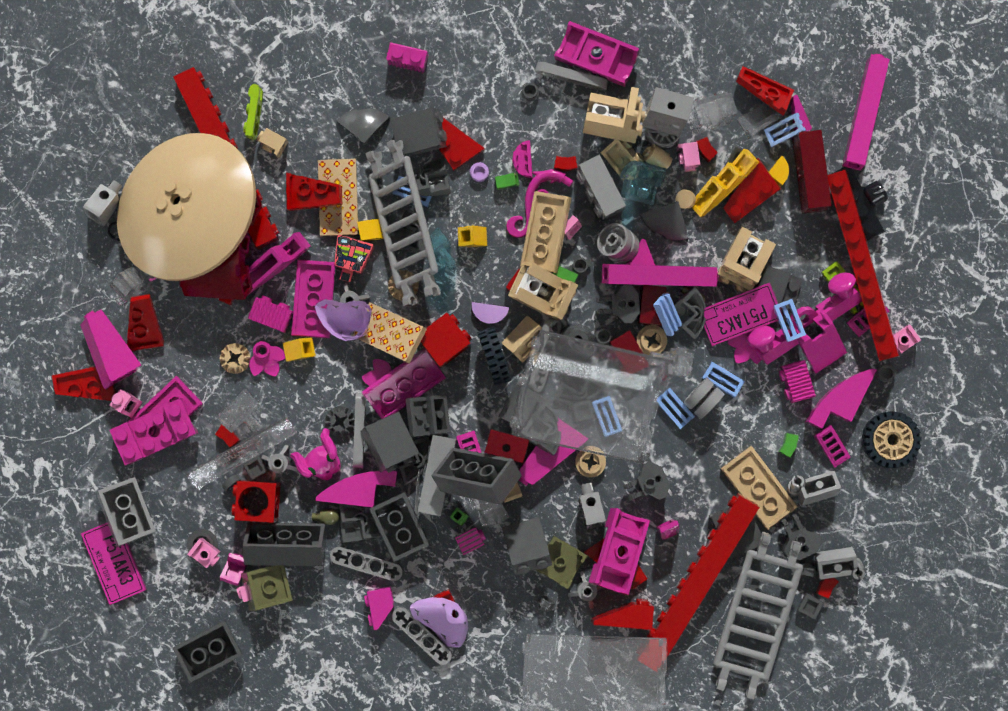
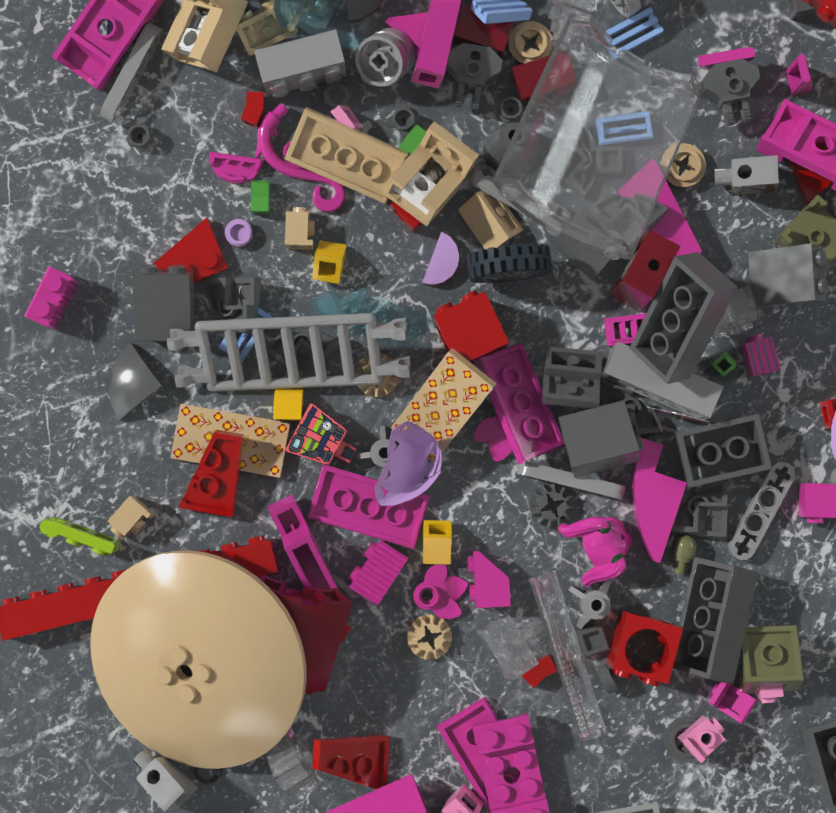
camera: 70 degrees left, 0 degrees up
(279, 390) = (490, 583): none -> dark pink slope
(489, 211) = (299, 229): none -> tan brick
(669, 474) = (709, 60): none -> dark pink tile

